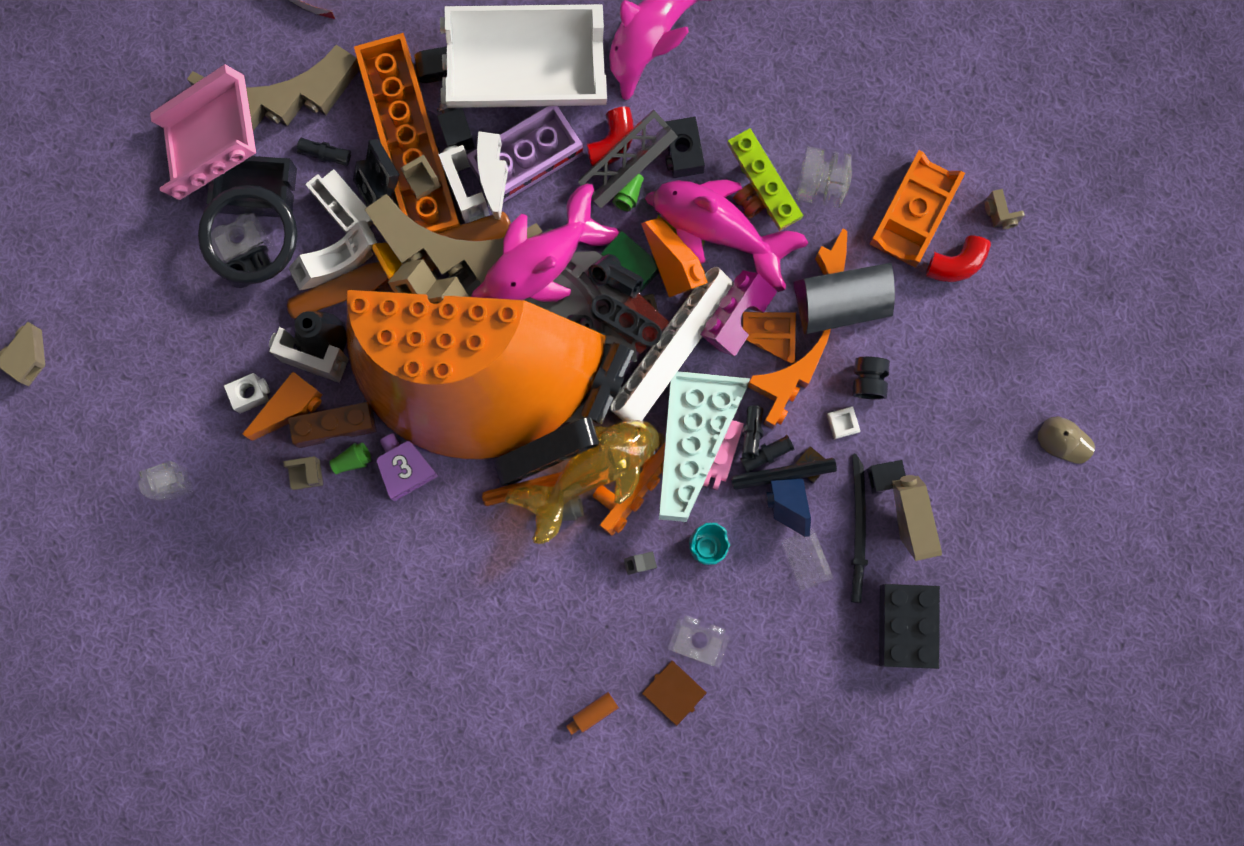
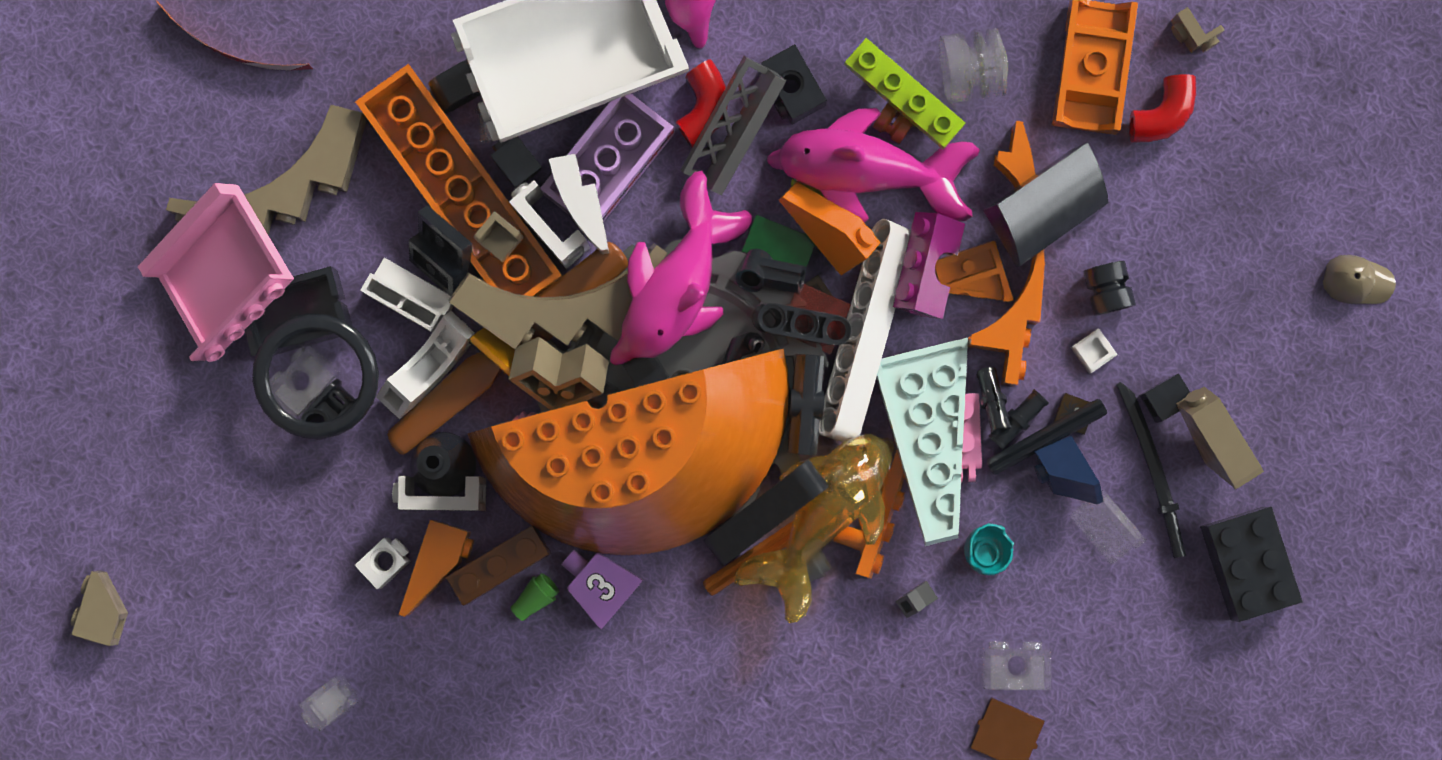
camera: 20 degrees left, 5 degrees up
(304, 472) = (486, 633): dark tan panel -> none
(323, 151) = (362, 239): black pin -> none
(628, 196) = (749, 167): bright green cone -> none

